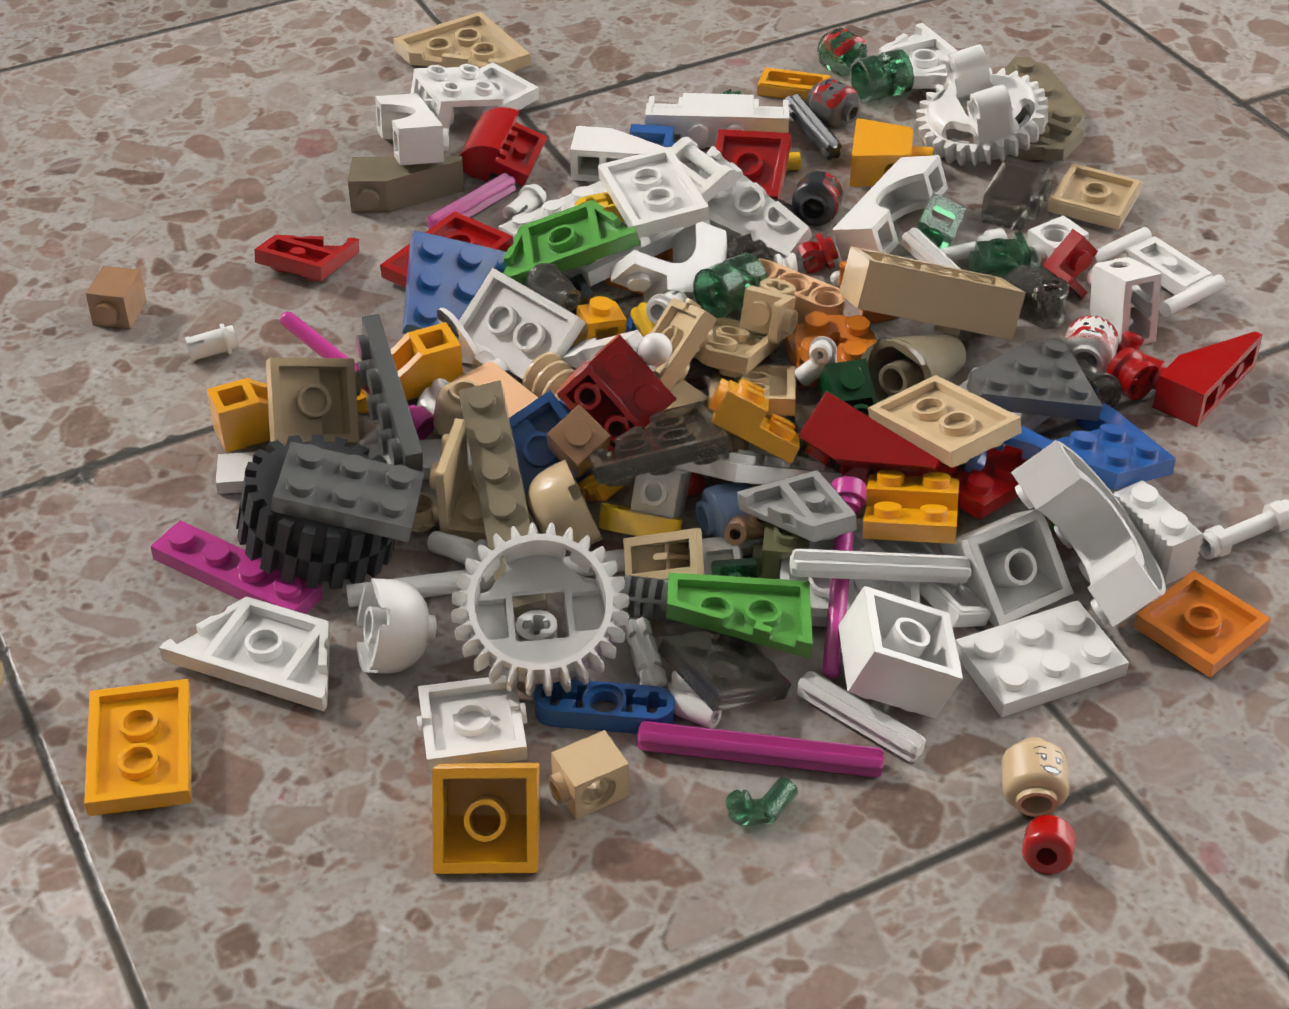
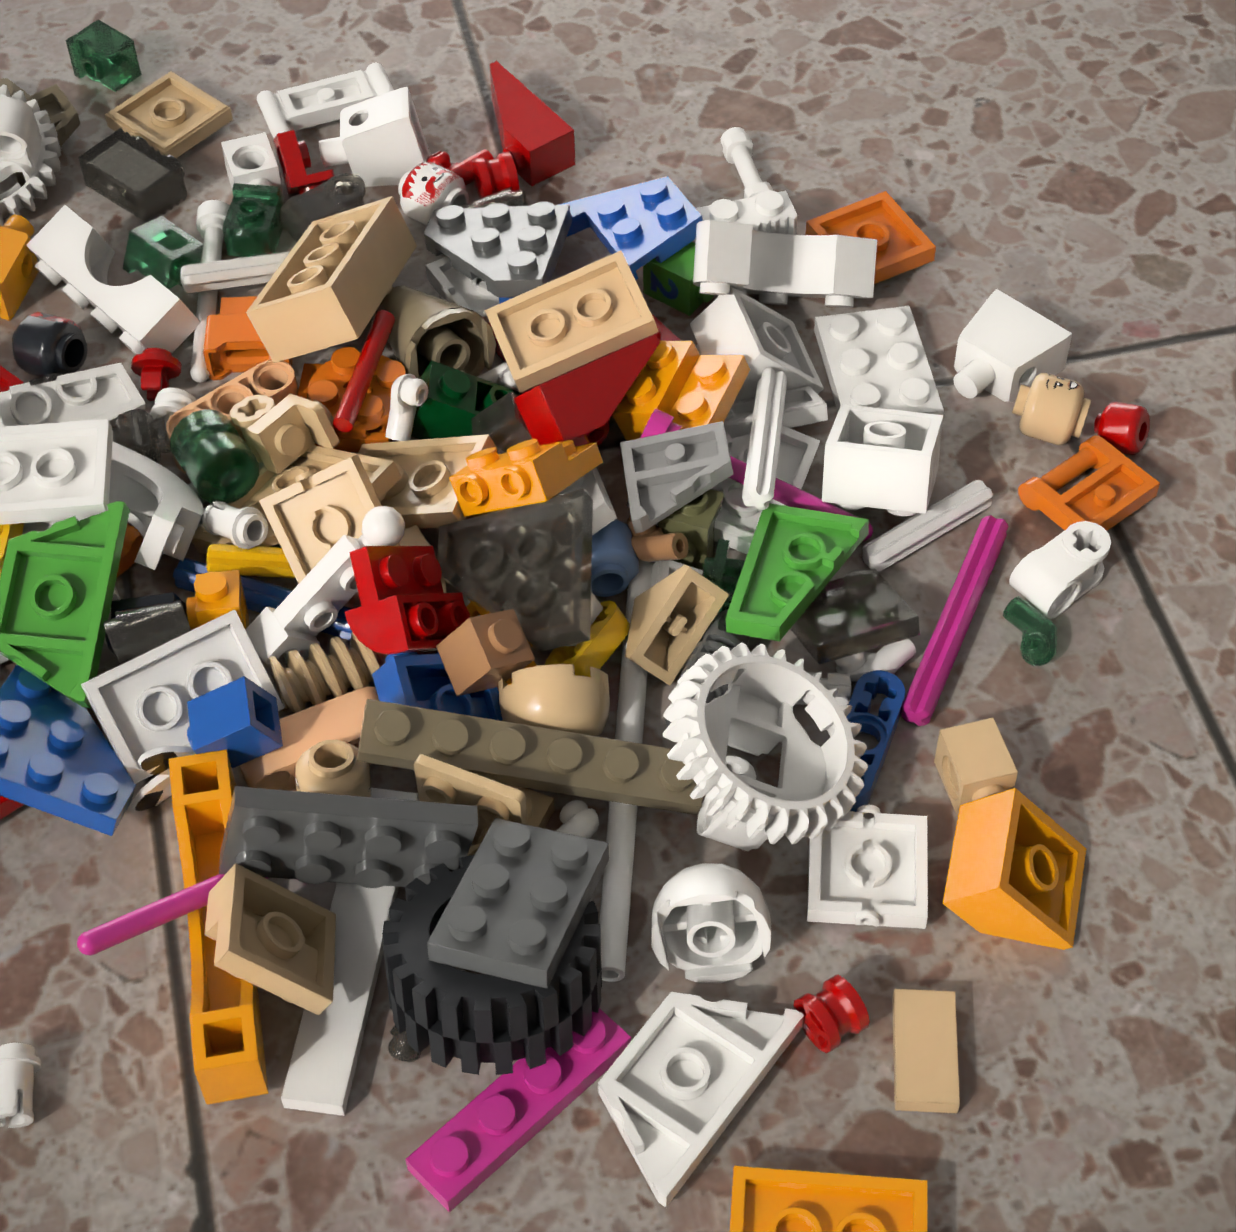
camera: 75 degrees left, 10 degrees up
(313, 786) = (925, 1051): none -> tan tile
(328, 717) = (832, 1013): none -> red wheel
(484, 344) = (235, 719): none -> blue brick
(833, 808) = (1063, 568): none -> white piece
(836, 330) = (364, 371): none -> red bar
(947, 835) = (1101, 498): none -> orange plate
(1102, 736) = (1007, 348): none -> white torso
(1138, 147) = (103, 55): none -> clear green brick

